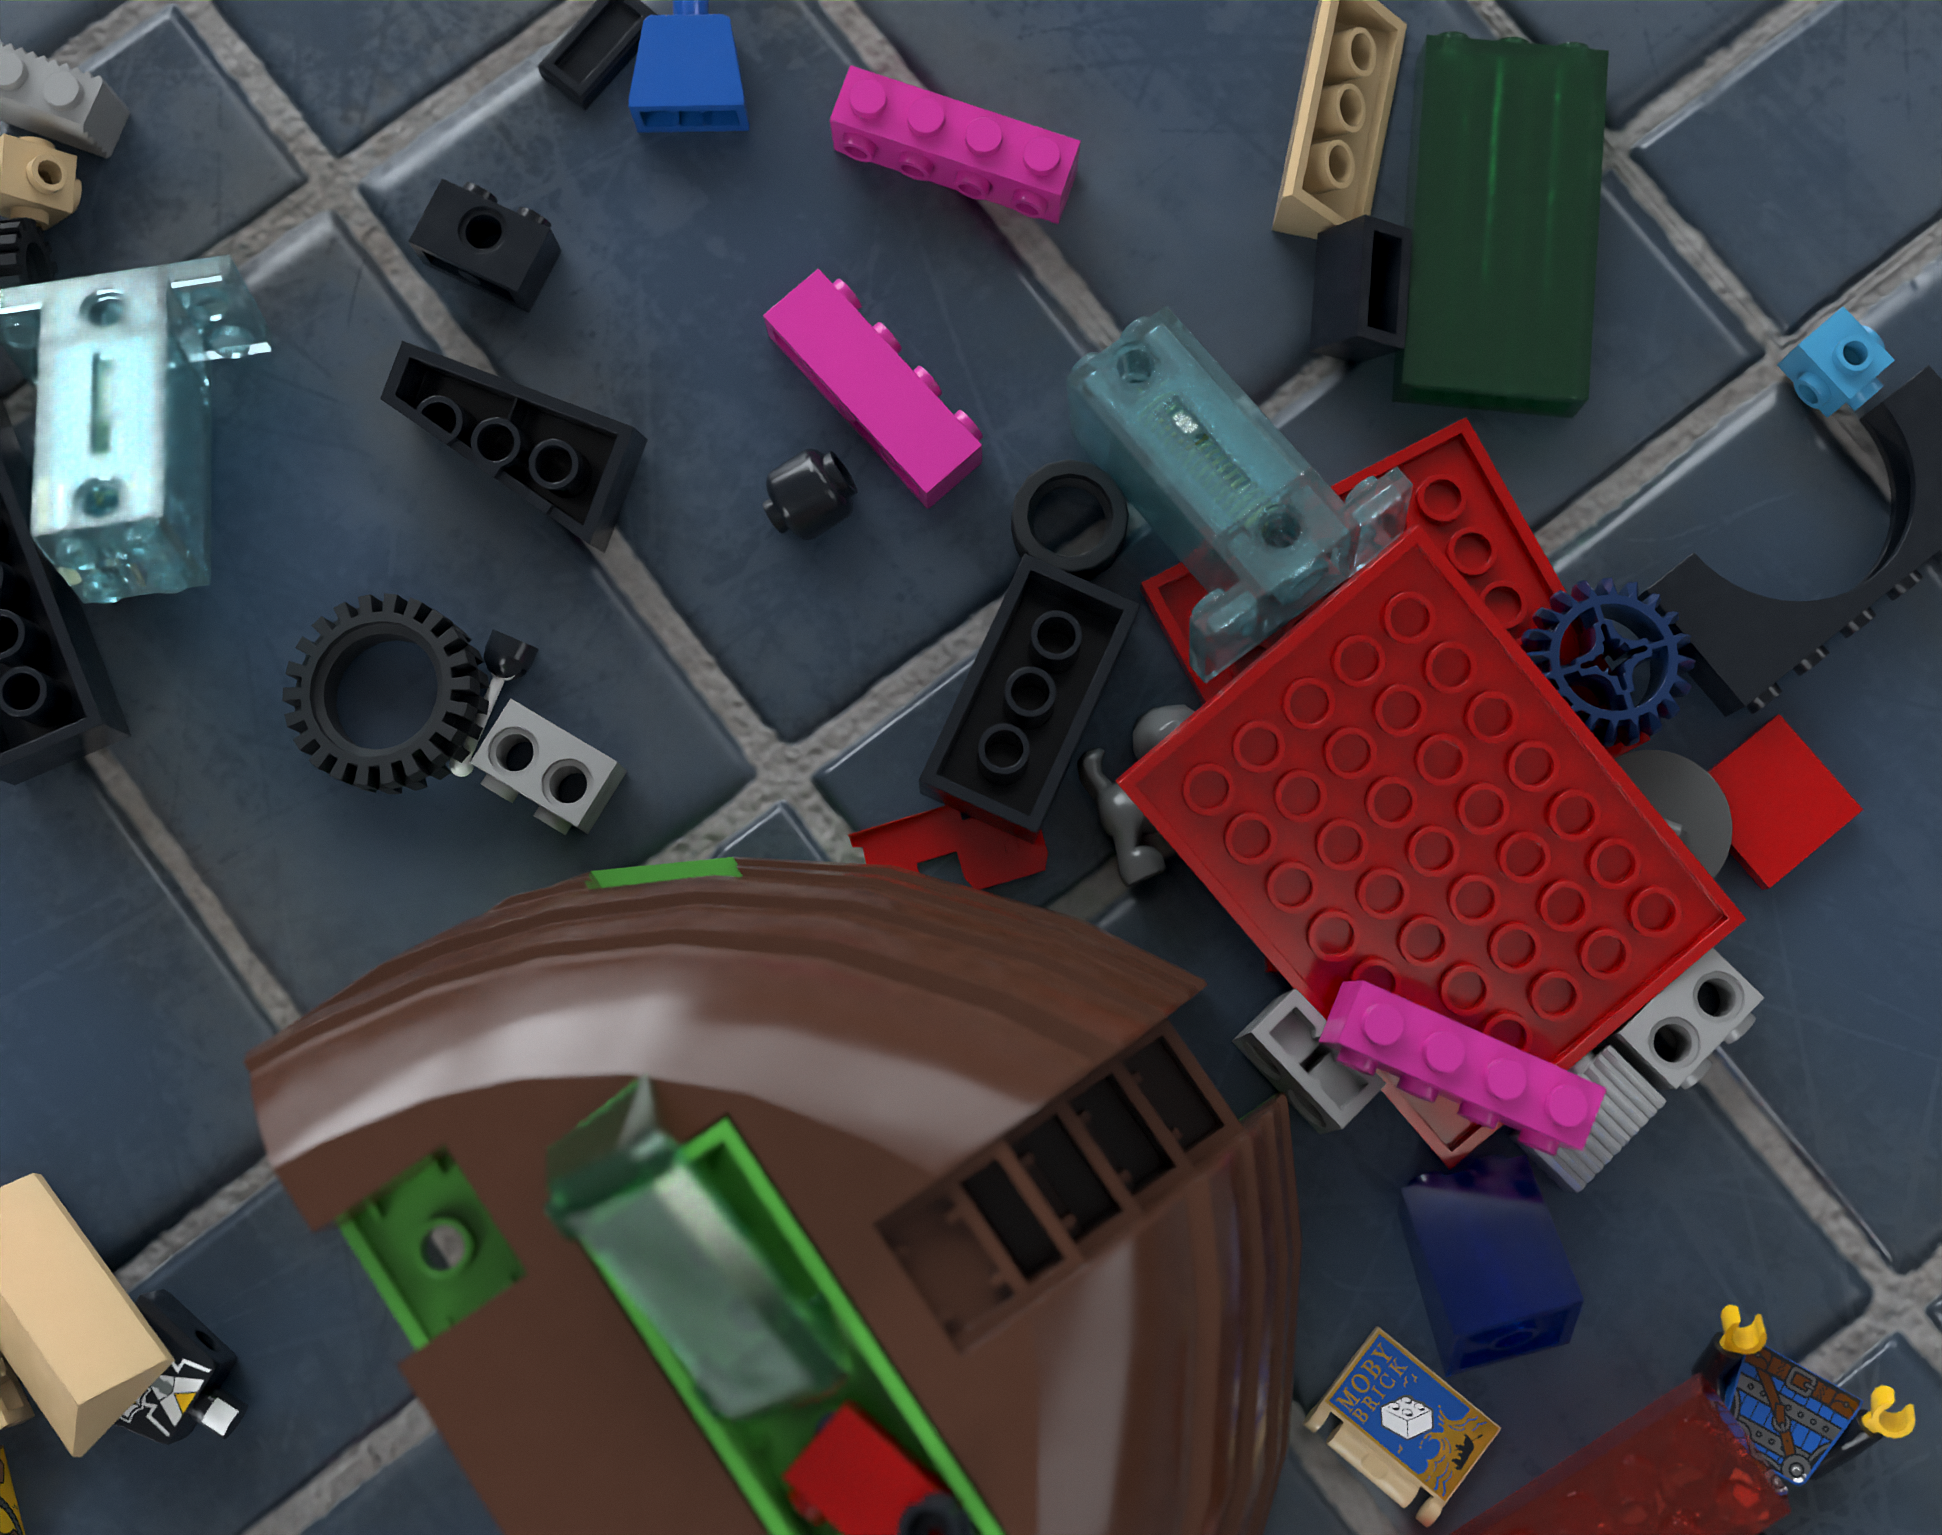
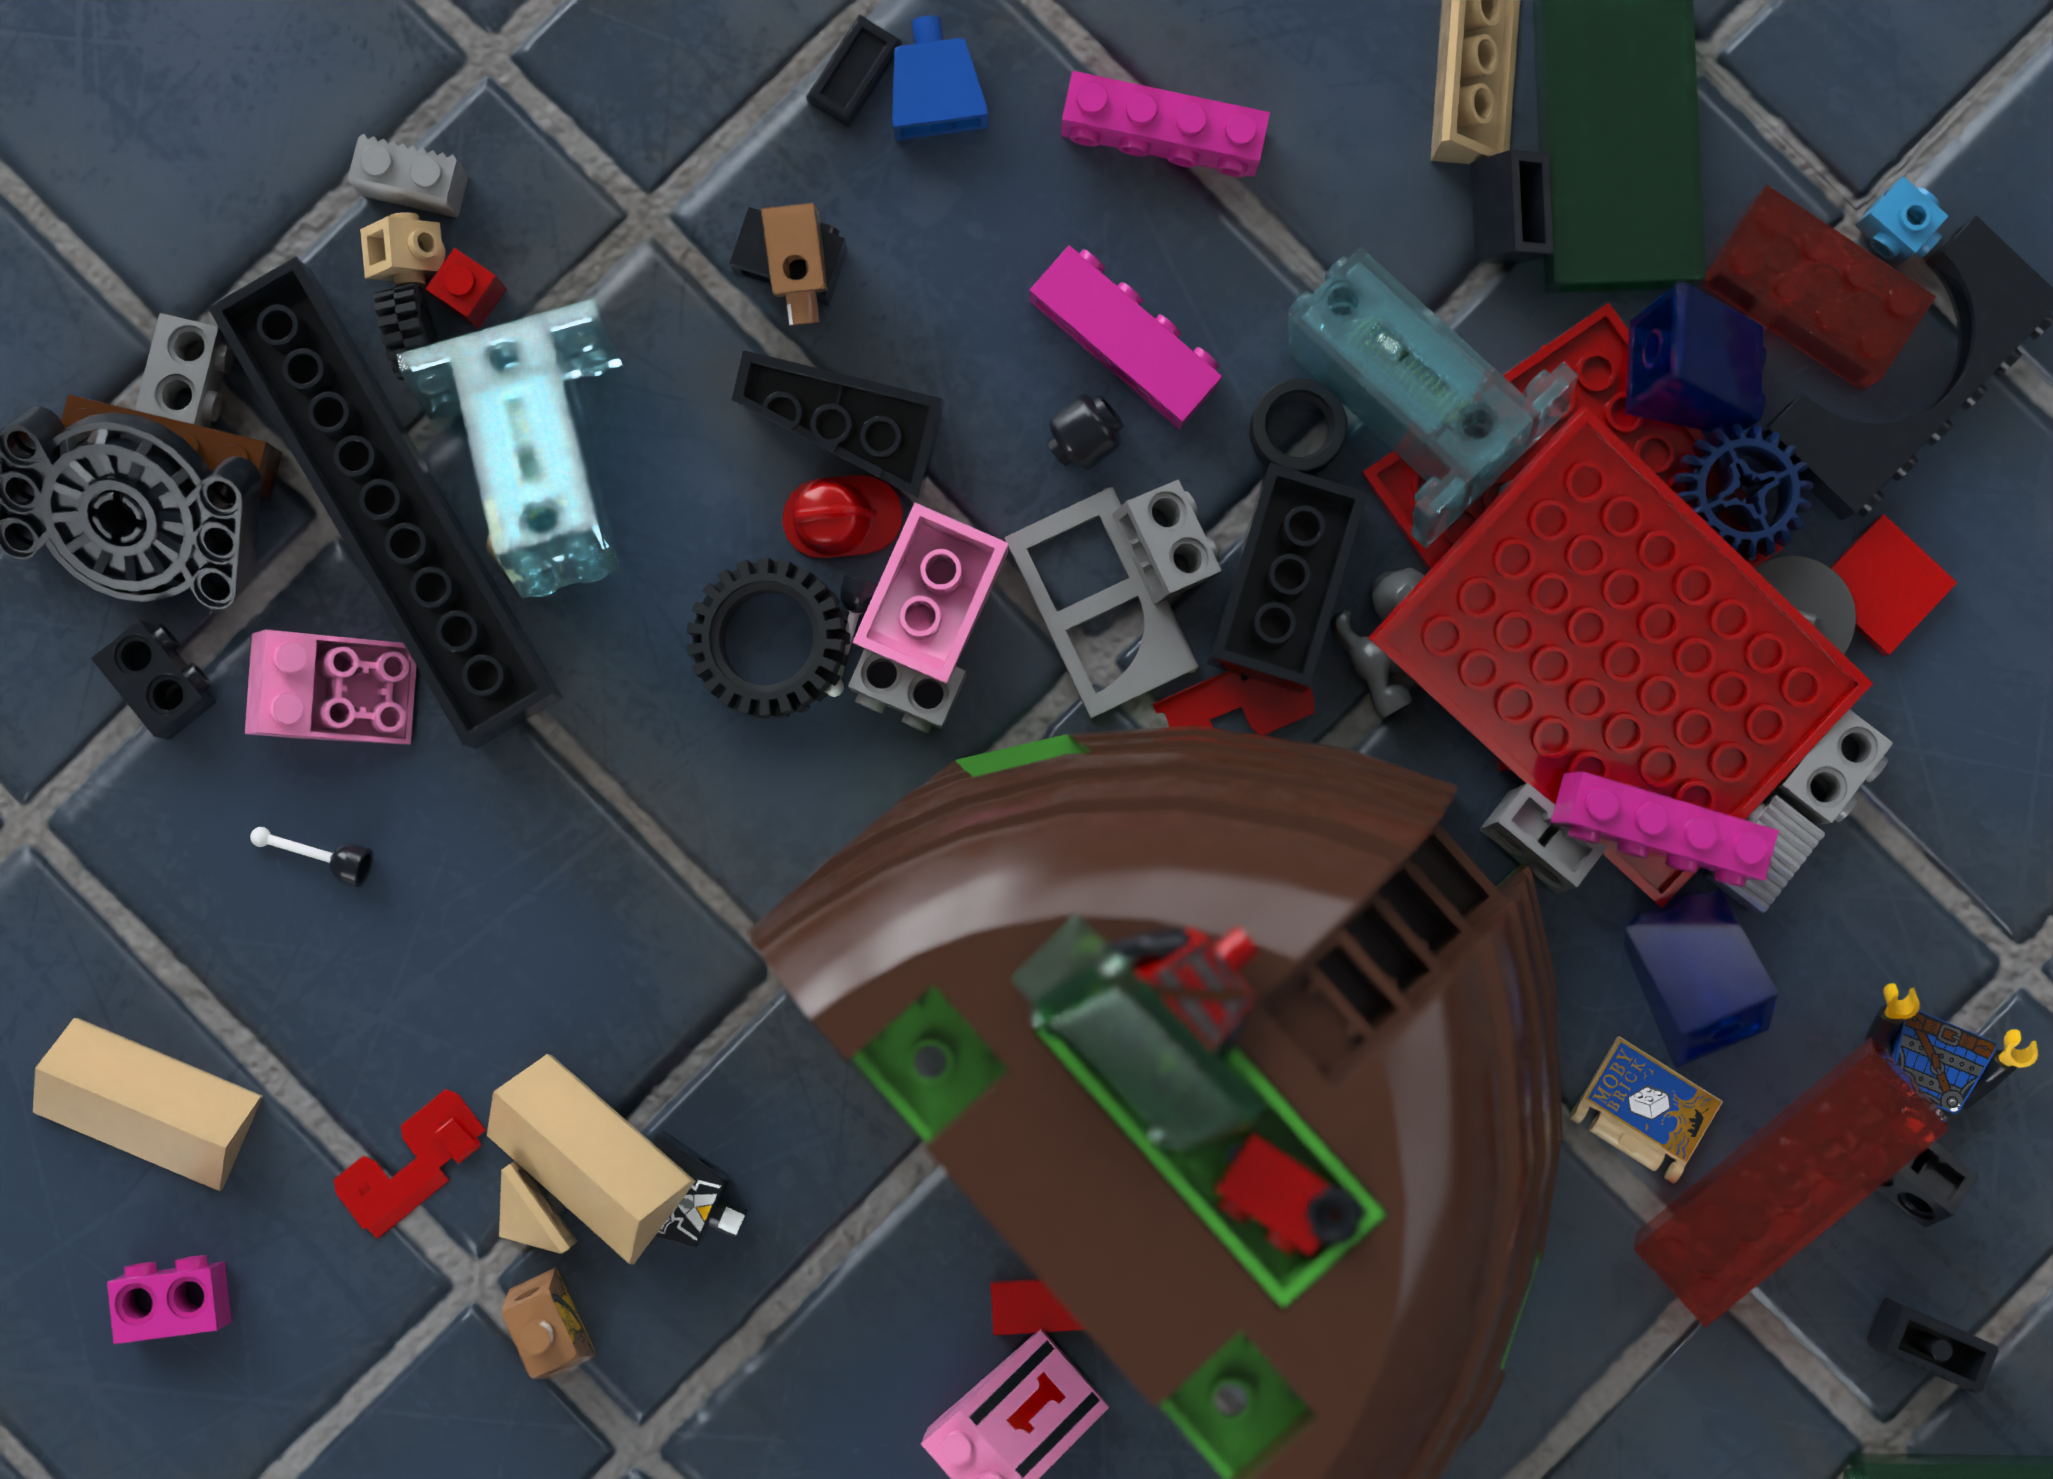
camera: 15 degrees left, 5 degrees up
(94, 233) = (466, 288): none -> red brick
(478, 212) = (790, 236): none -> medium nougat torso
(505, 561) = (842, 516): none -> red piece
(590, 662) = (931, 593): none -> bright pink slope
(780, 1184) = (1196, 979): none -> torso
(871, 767) = (1163, 647): none -> light grey window
(873, 638) = (1155, 545): none -> light grey brick
(1564, 497) = (1695, 363): none -> clear blue slope
(1724, 431) = (1816, 288): none -> clear red brick

